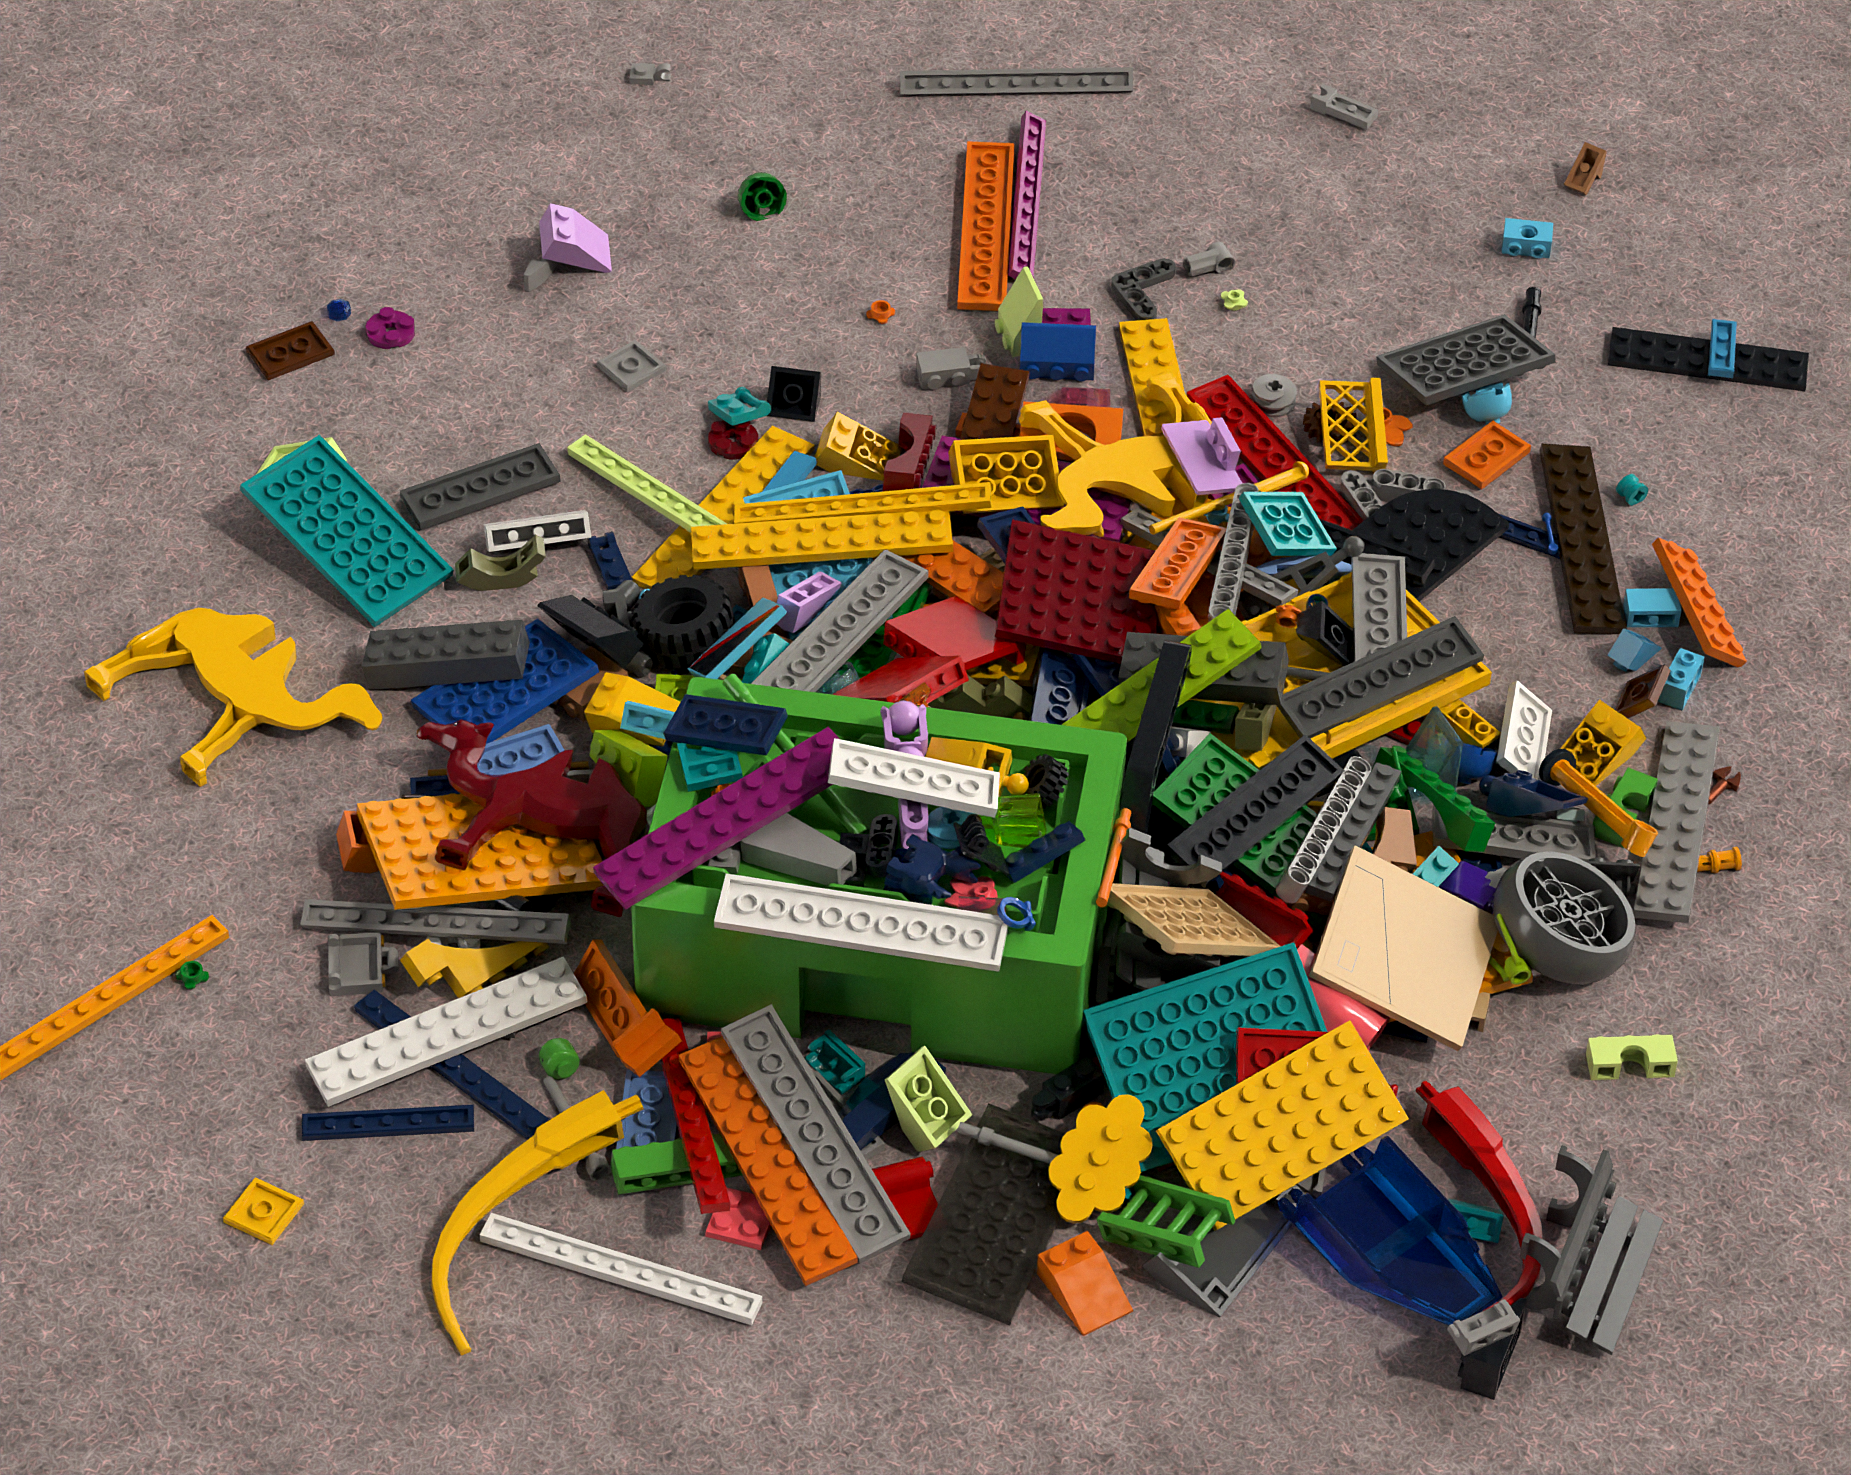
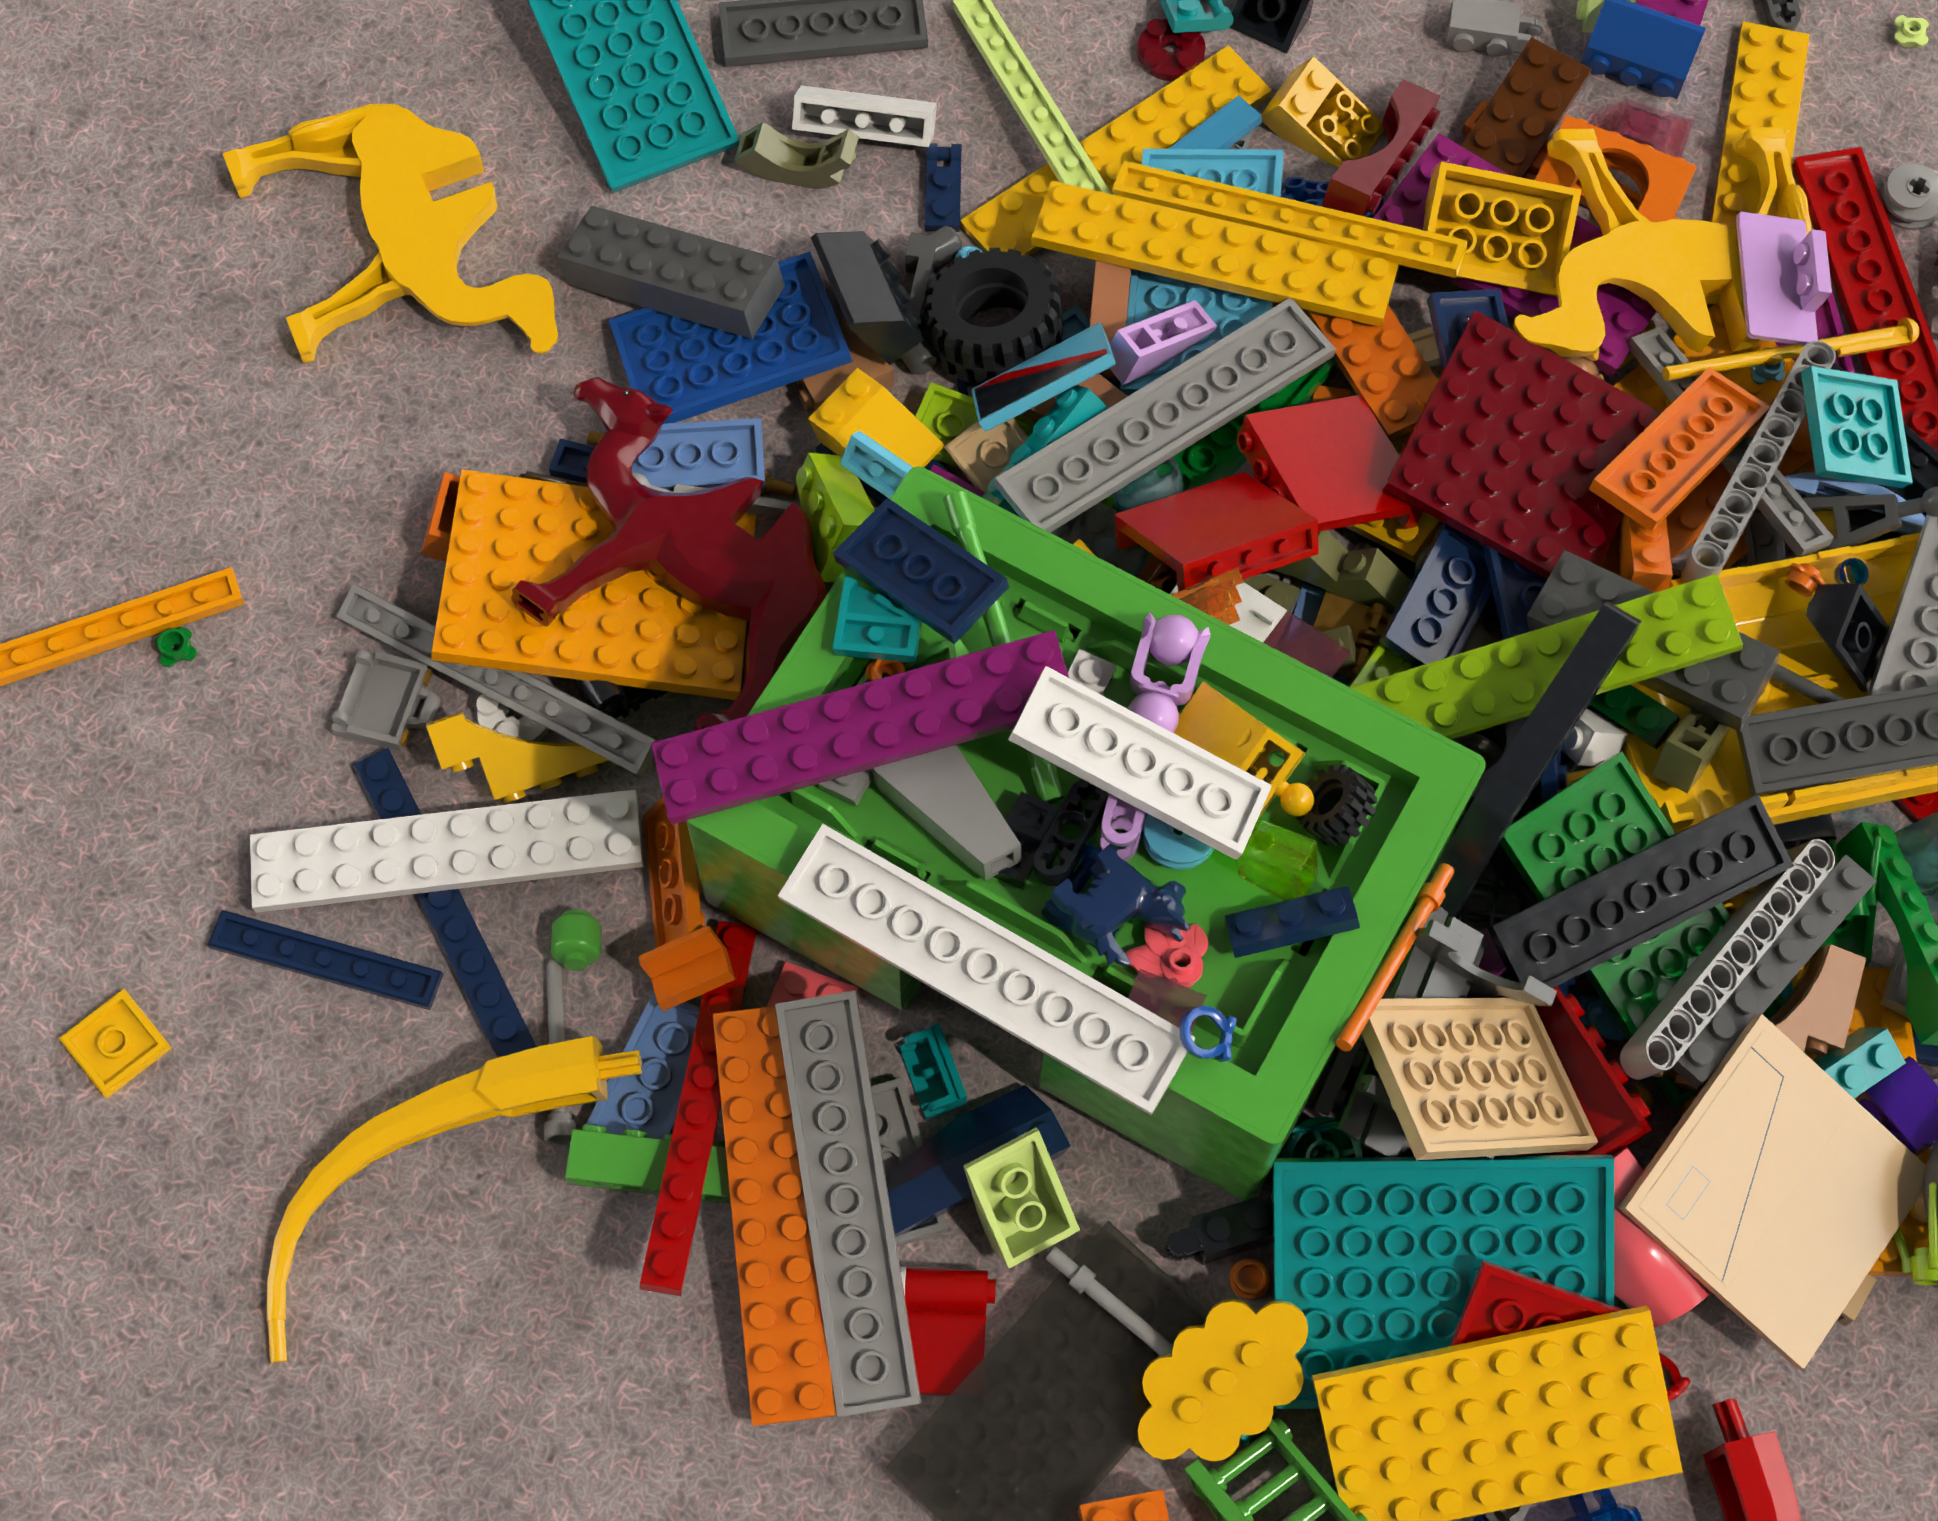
camera: 20 degrees right, 20 degrees up
(621, 1269) = (528, 1307): white plate -> none
(741, 1225) = (712, 1279): coral plate -> none
(976, 844) = (1203, 892): black hinge -> none

